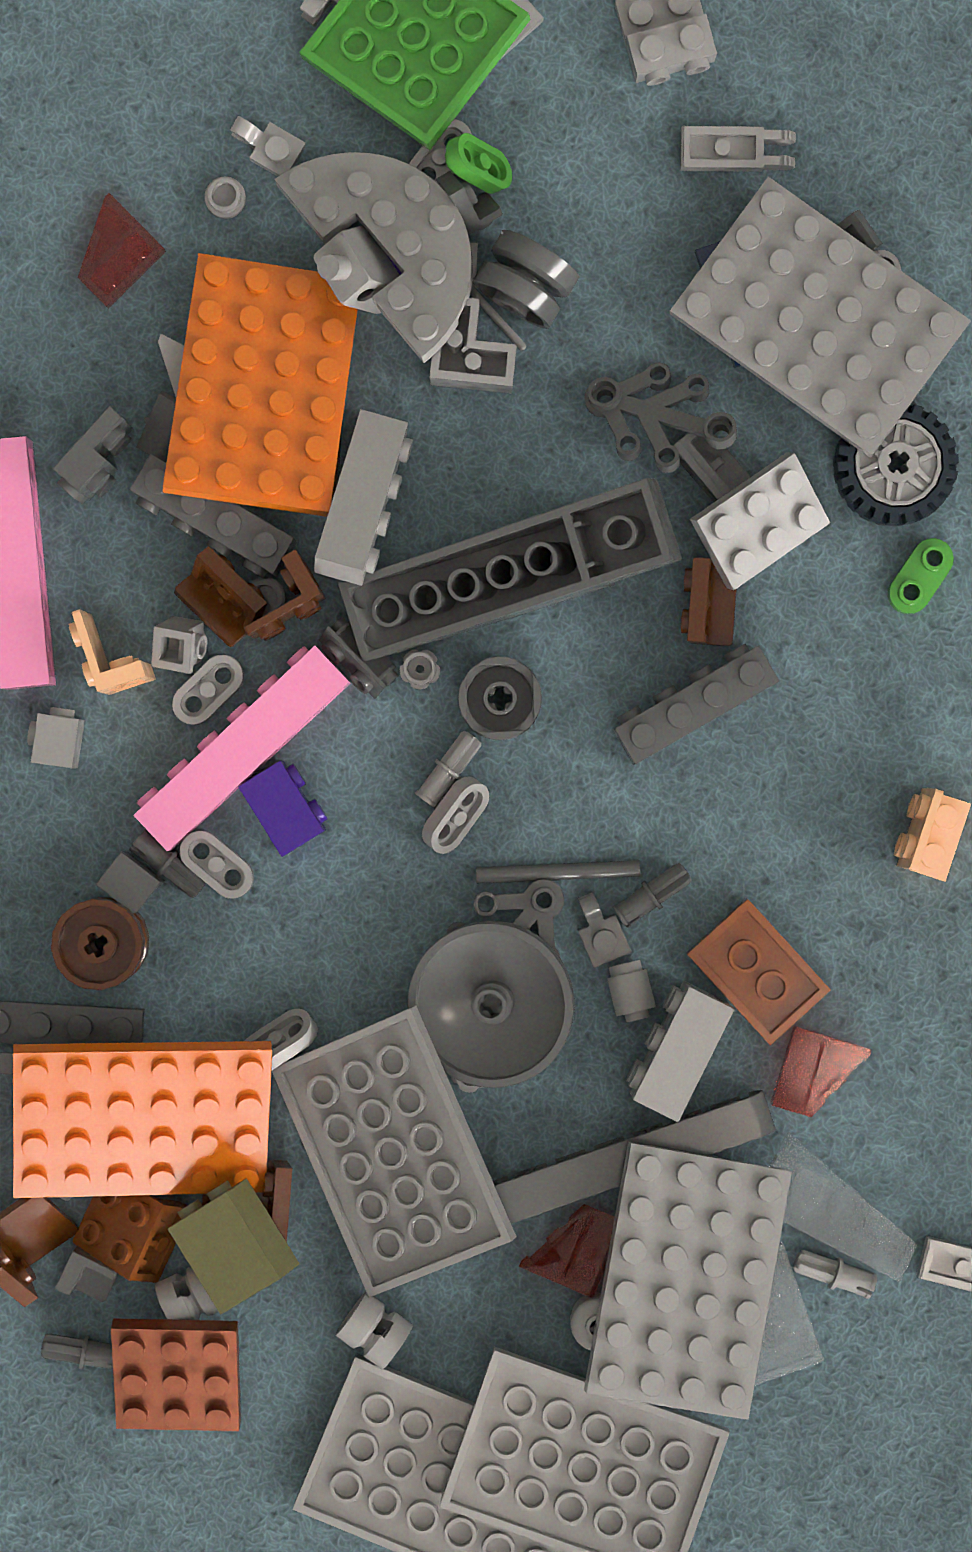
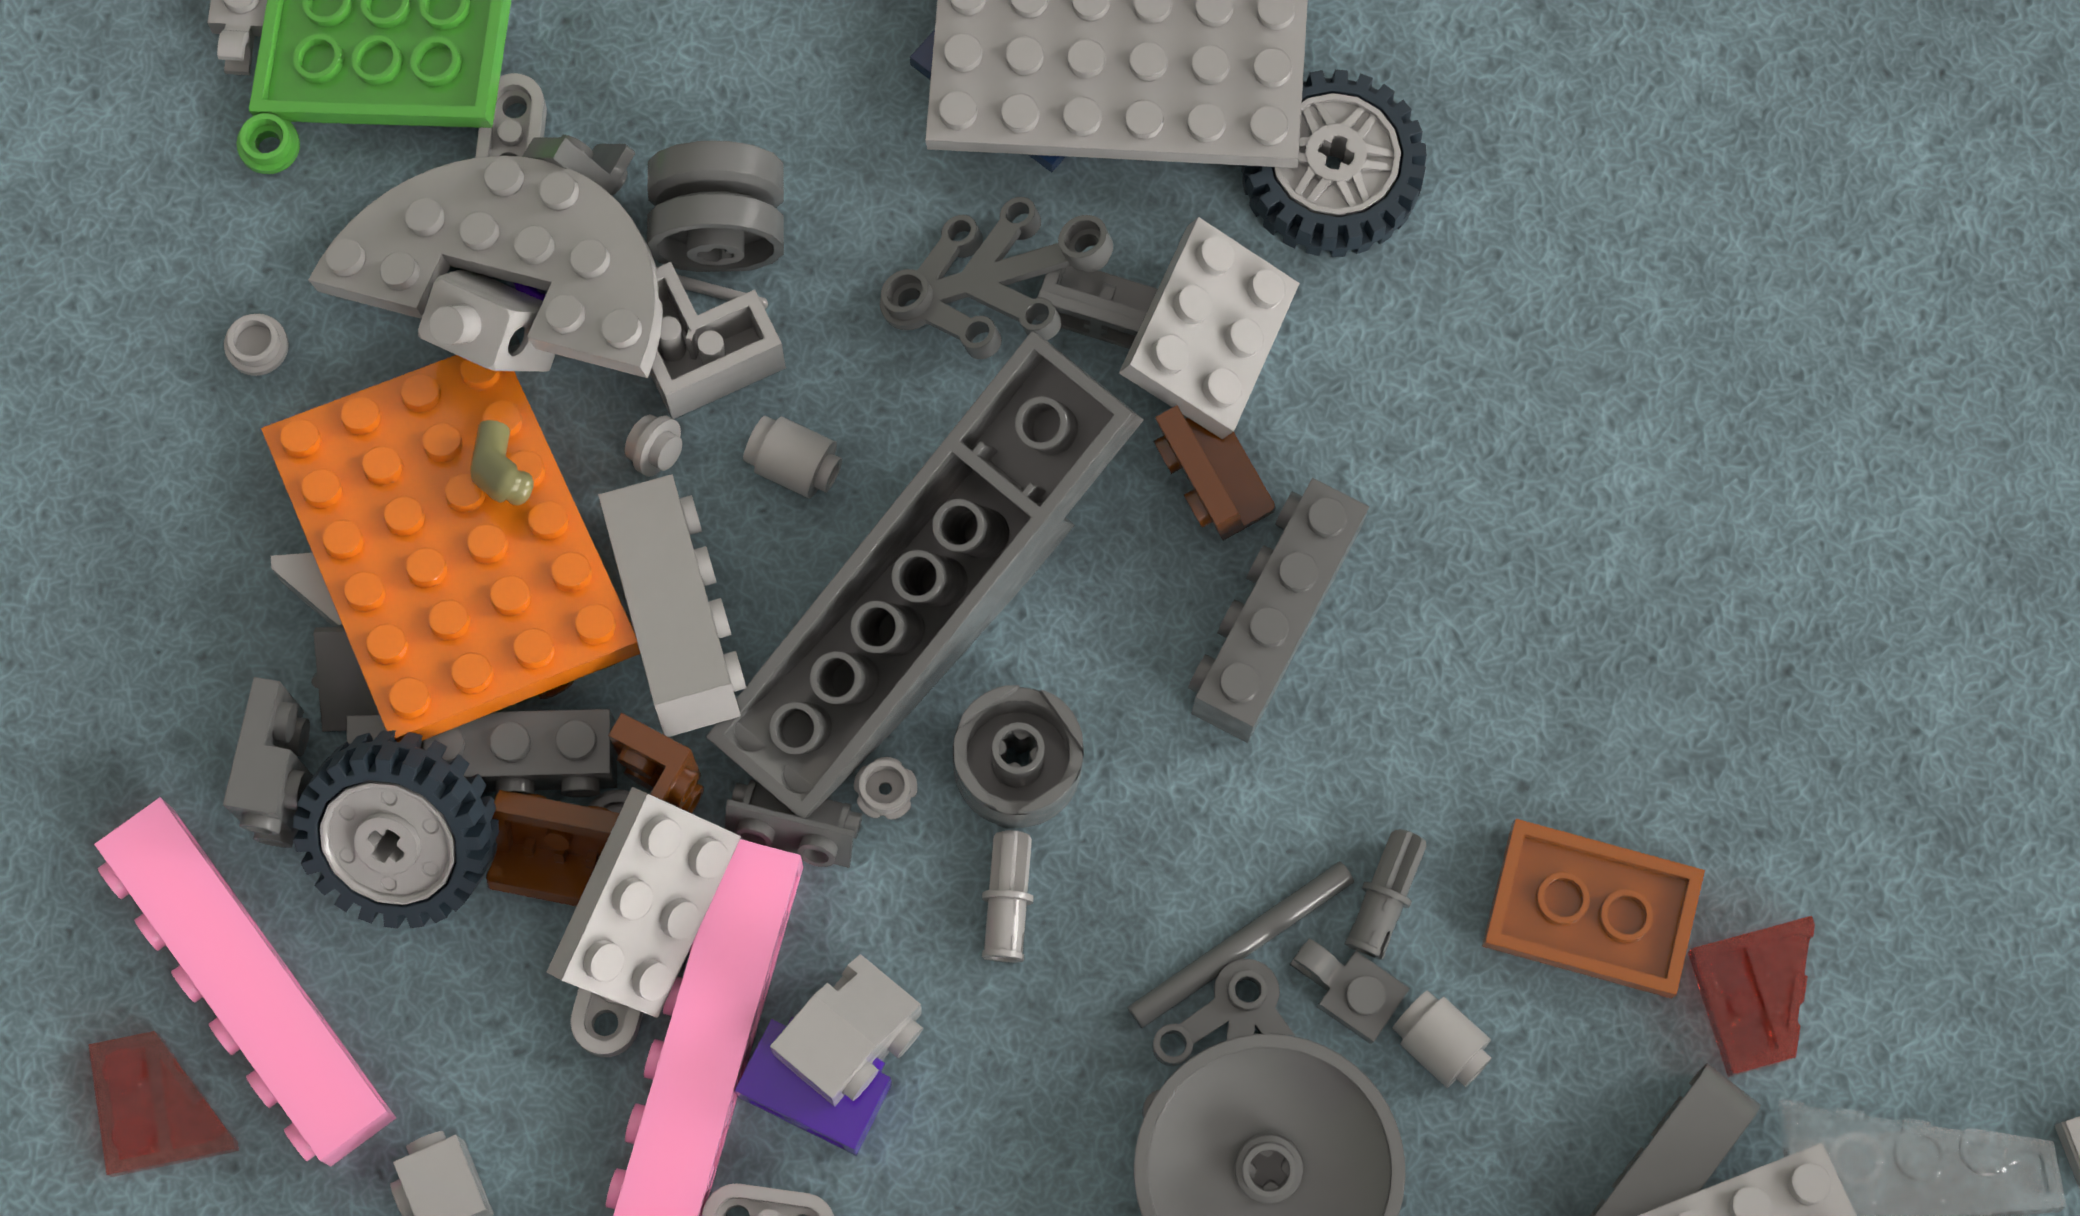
camera: 40 degrees left, 15 degrees down
(117, 253) = (151, 497): clear red wing -> none
(123, 672) = (483, 1038): light nougat bracket -> none
(140, 534) = (396, 829): none -> wheel
(186, 644) = (528, 946): light grey brick -> none
(247, 660) = (643, 903): none -> plate
(273, 148) = (283, 250): light grey plate -> none
(296, 65) = (262, 127): none -> bright green plate
(308, 362) = (493, 470): none -> olive arm
(316, 793) = (846, 1029): none -> light grey brick
(410, 395) = (654, 444): none -> light grey plate
(455, 815) = (1055, 950): light grey plate -> none
(478, 163) = (564, 107): bright green plate -> none
(483, 450) = (793, 456): none -> light grey brick
(678, 1050) = (1561, 1071): light grey brick -> none
(920, 575) = (1456, 278): bright green plate -> none
(932, 833) = (1693, 588): light nougat bracket -> none

